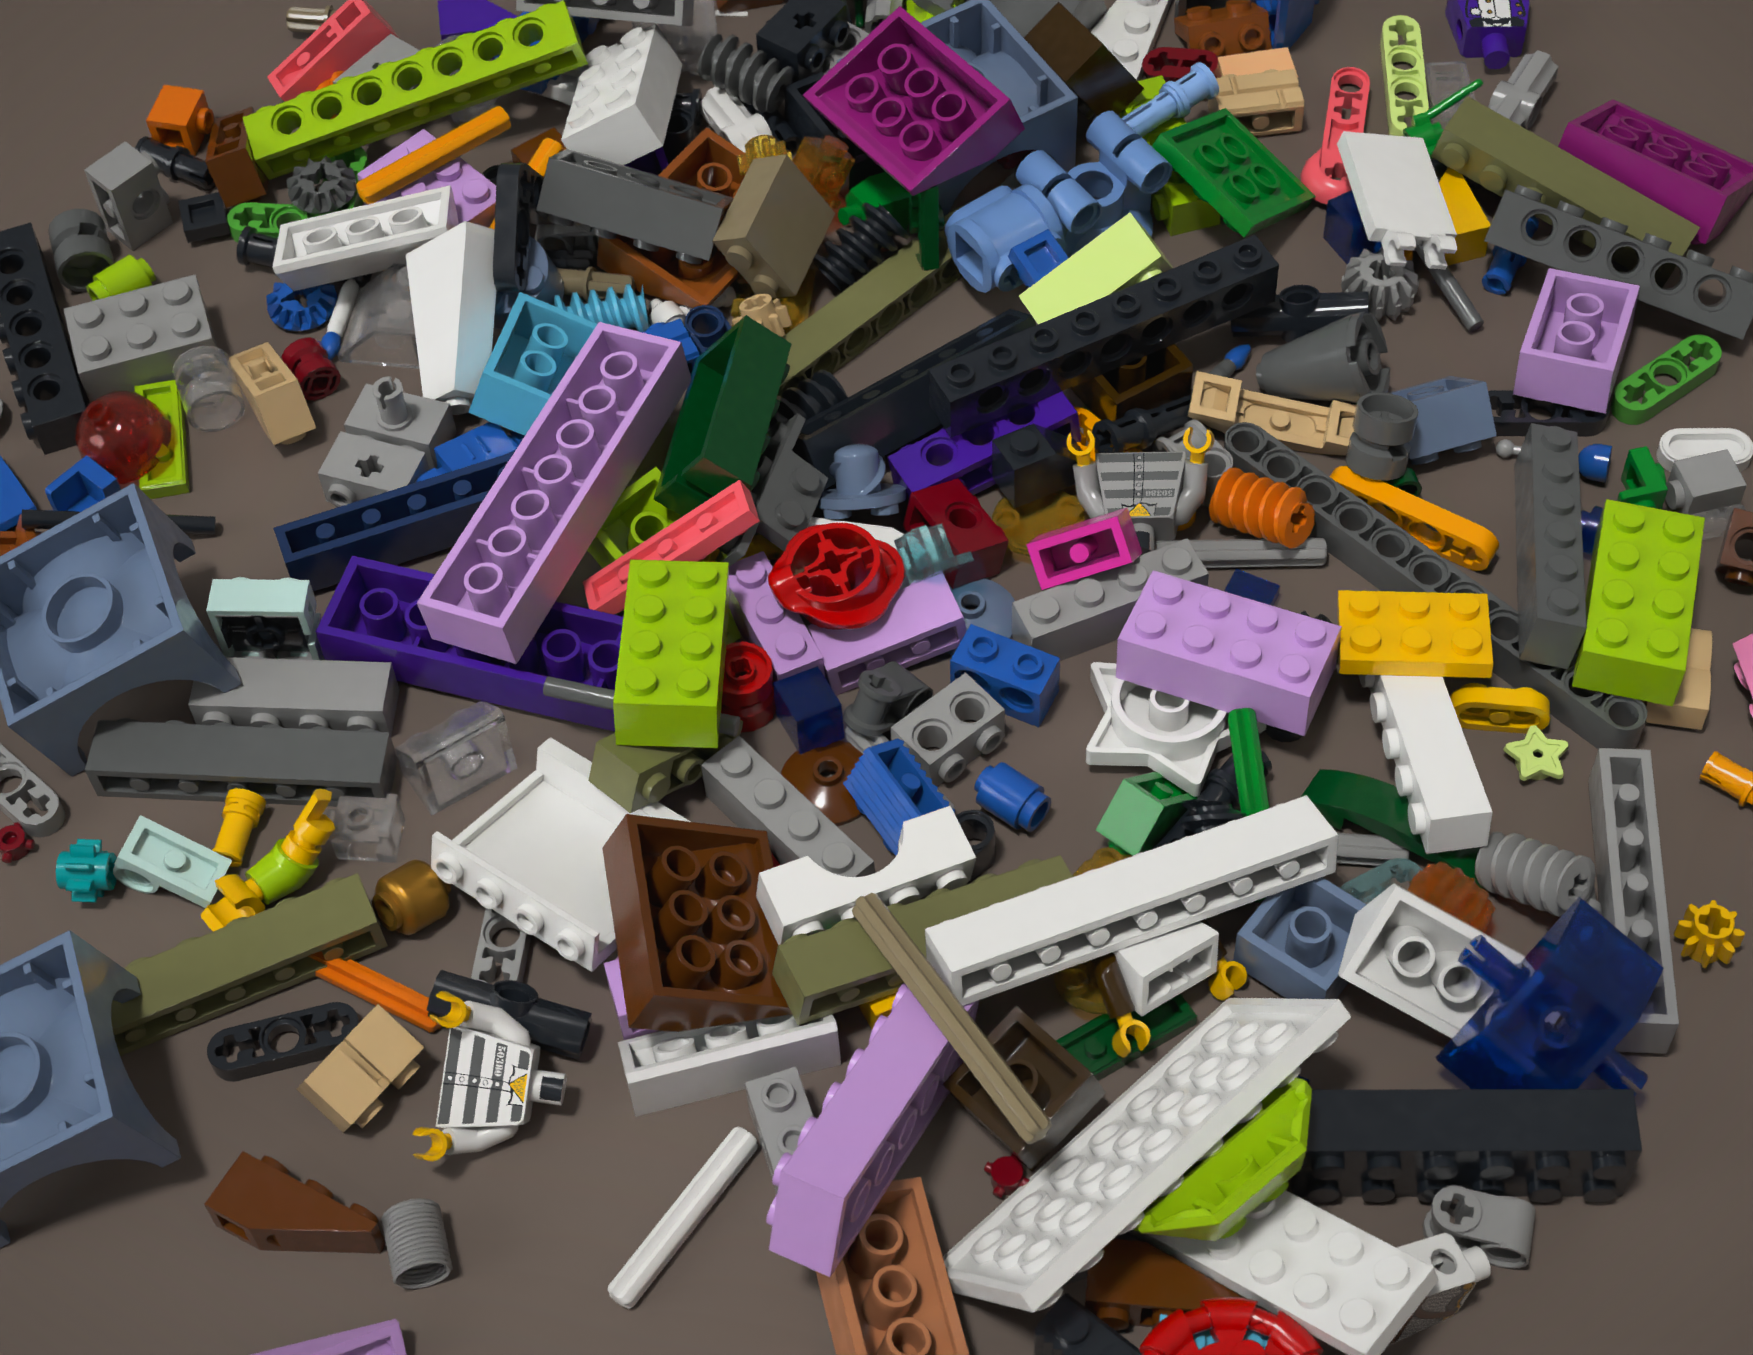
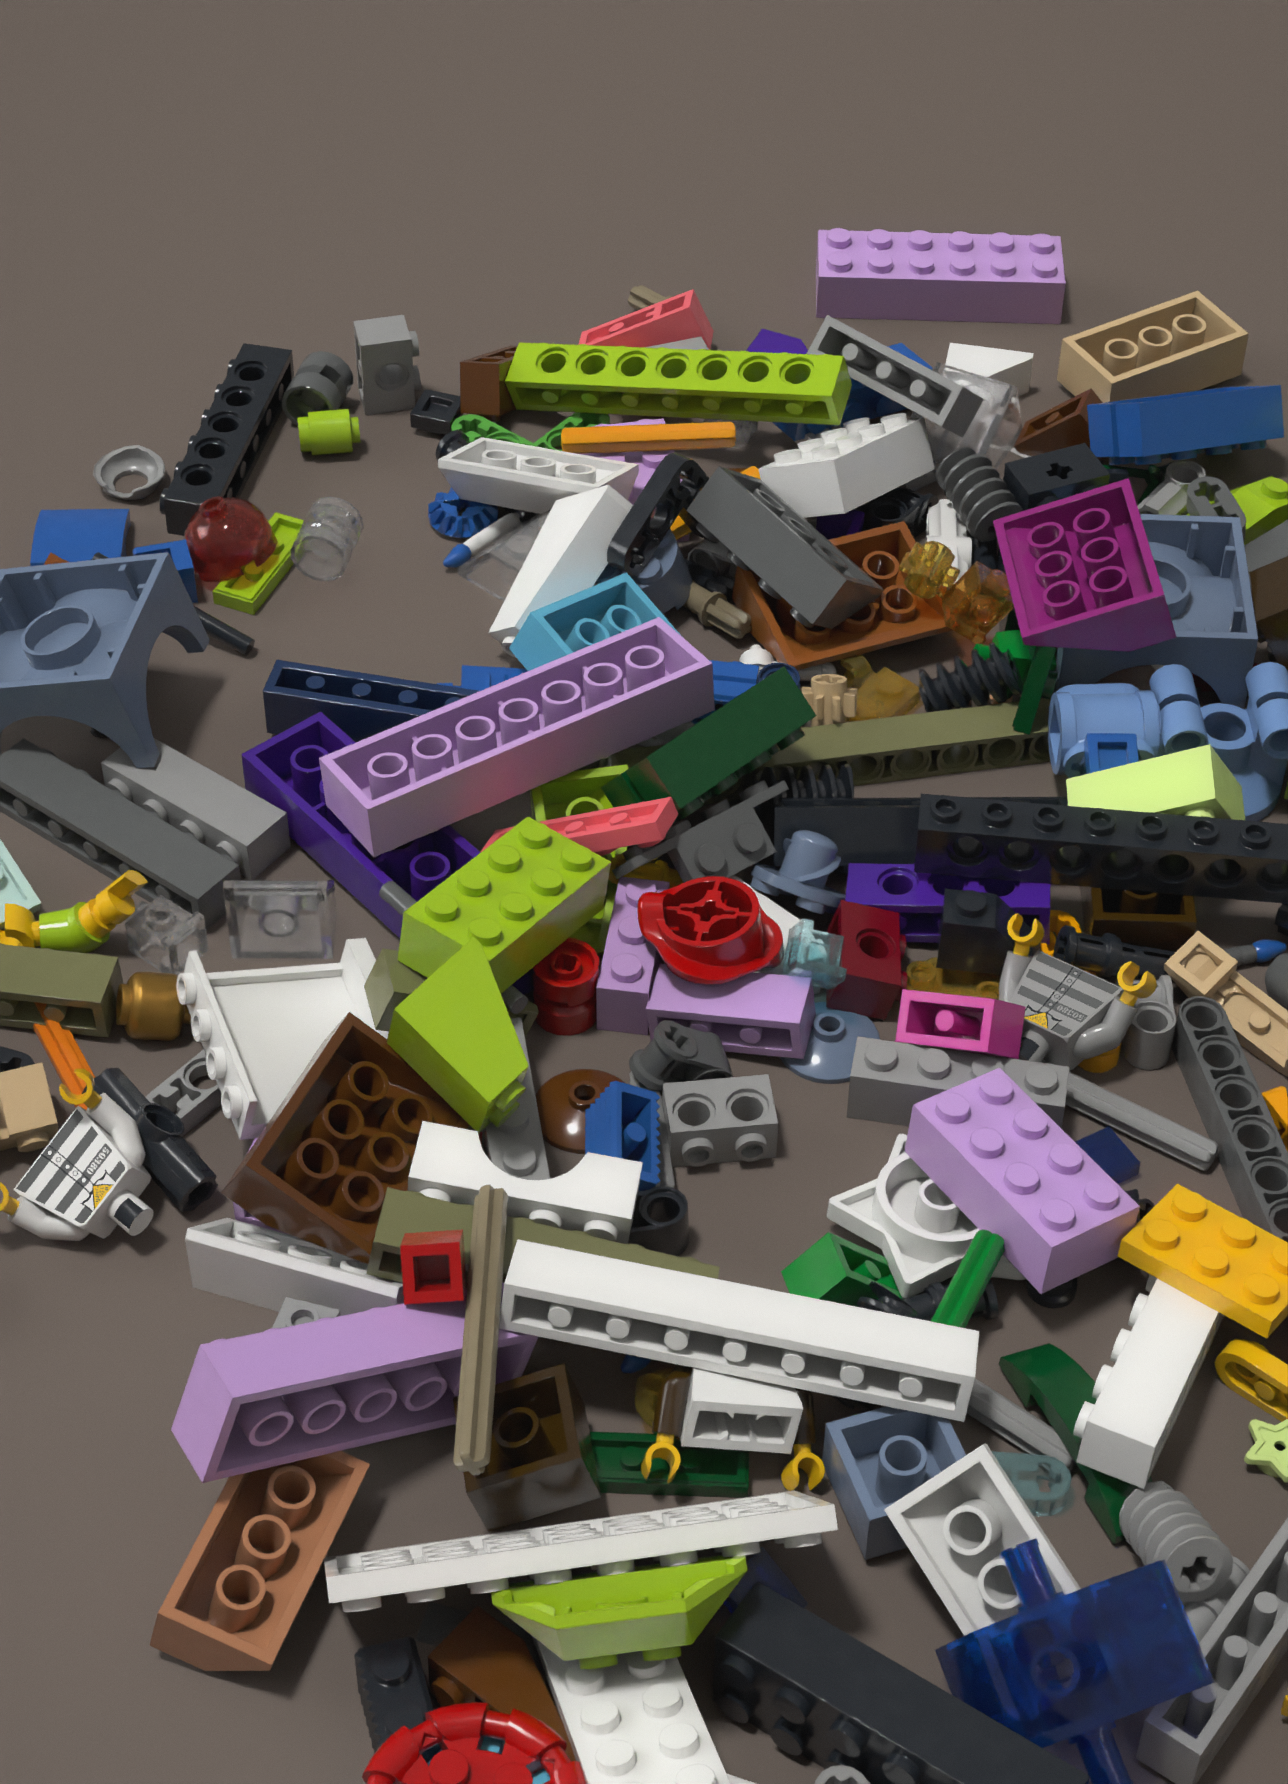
camera: 30 degrees right, 10 degrees down
(137, 335) = (294, 467): light grey brick -> none
(177, 162) = (445, 356): black pin -> none
(180, 118) = (478, 328): orange brick -> none
(240, 816) = (76, 874): yellow pin -> none
(265, 618) = (211, 723): light aqua piece -> none
(273, 394) = (374, 569): tan slope -> none
(315, 372) = (423, 563): dark red wheel -> none
(332, 193) = (529, 429): dark grey gear -> none
(367, 467) = (400, 653): light grey brick -> none
(401, 418) = (453, 635): light grey brick -> none
(622, 312) = (708, 638): medium azure piece -> none
(682, 1217) = (118, 1398): white axle -> none
(746, 783) = (463, 1039): none -> lime slope
(774, 226) = (893, 624): dark tan brick -> none
(809, 710) = (608, 1036): clear blue brick -> none
(877, 990) = (433, 1267): none -> red brick
(1006, 1175) = (460, 1519): dark red piece -> none
(1010, 672) = (812, 1101): blue brick -> none
(1012, 797) = (731, 1205): blue brick -> none
(1262, 508) = (1170, 1081): orange piece -> none
(1454, 894) = (1069, 1518): clear orange gear -> none

